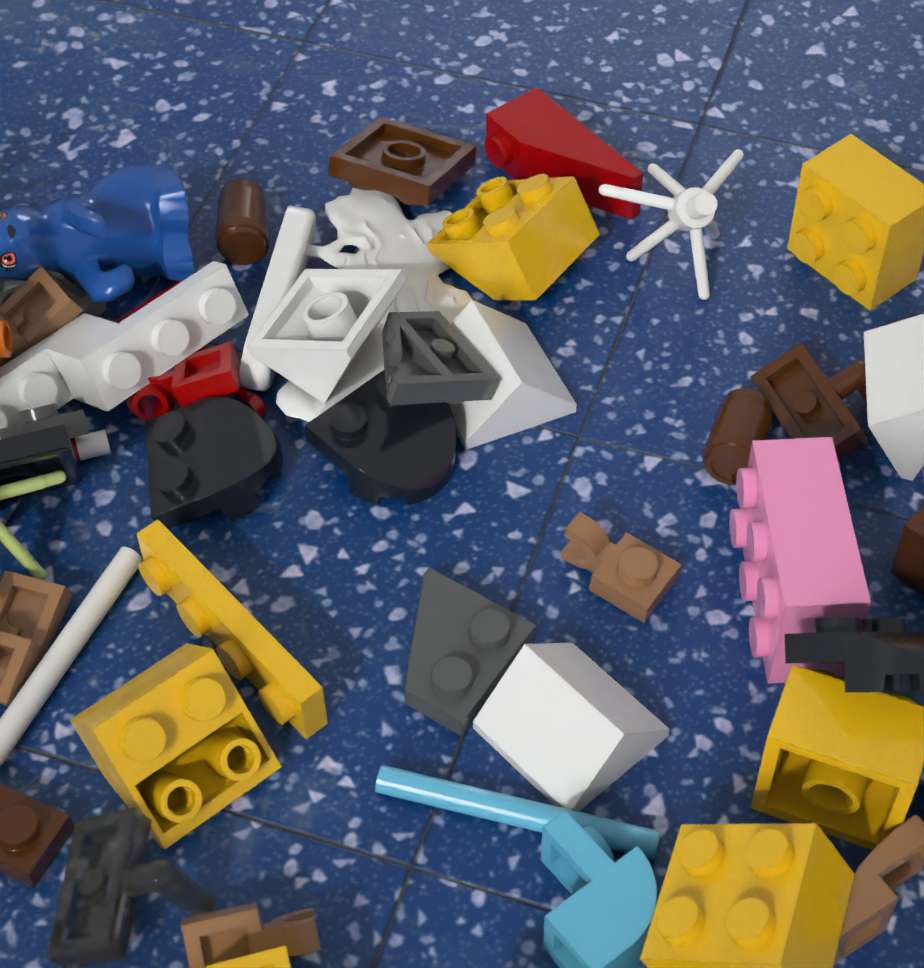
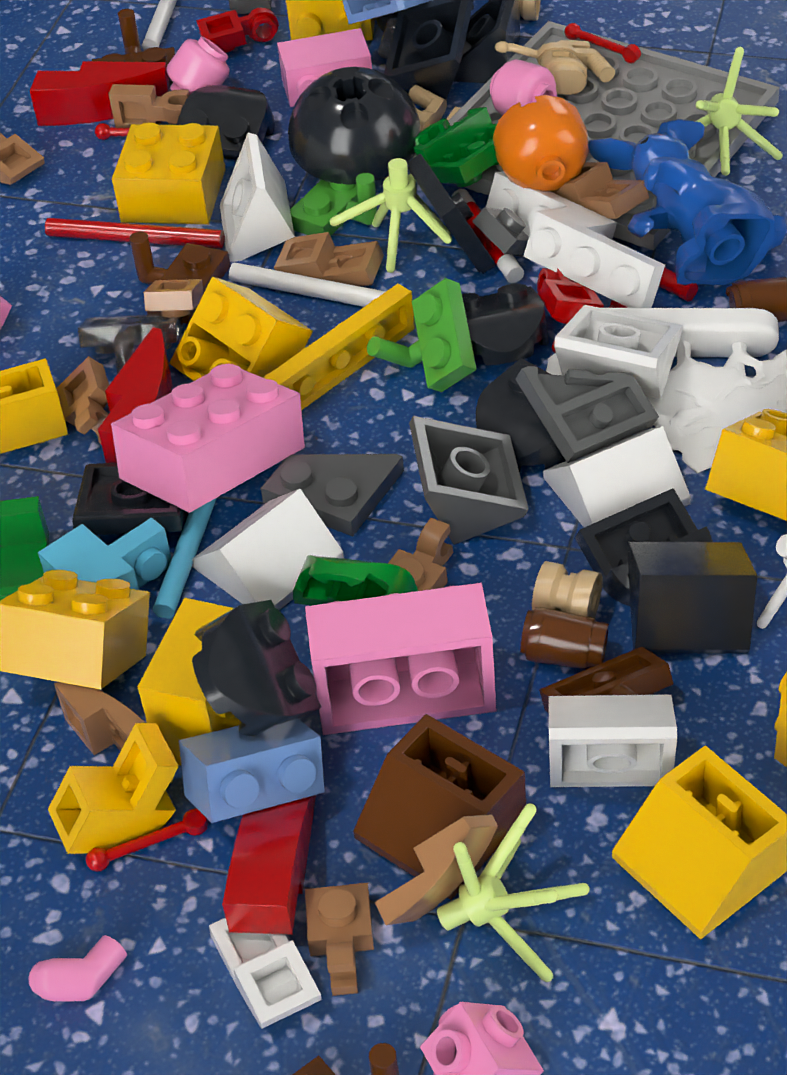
camera: 90 degrees right, 5 degrees down
(66, 811) = (173, 297): none -> medium nougat plate
(240, 503) = (442, 336): none -> bright green plate
(273, 866) = (139, 382): none -> red slope
(398, 757) = (208, 436): none -> bright pink brick
(458, 880) = (117, 507): none -> black plate
(496, 496) = (468, 476): none -> dark grey slope
(618, 356) = (653, 520): none -> black slope
(676, 428) = (567, 593): none -> tan wheel
(693, 318) = (691, 596): none -> black slope
(699, 596) = (341, 579): none -> green slope

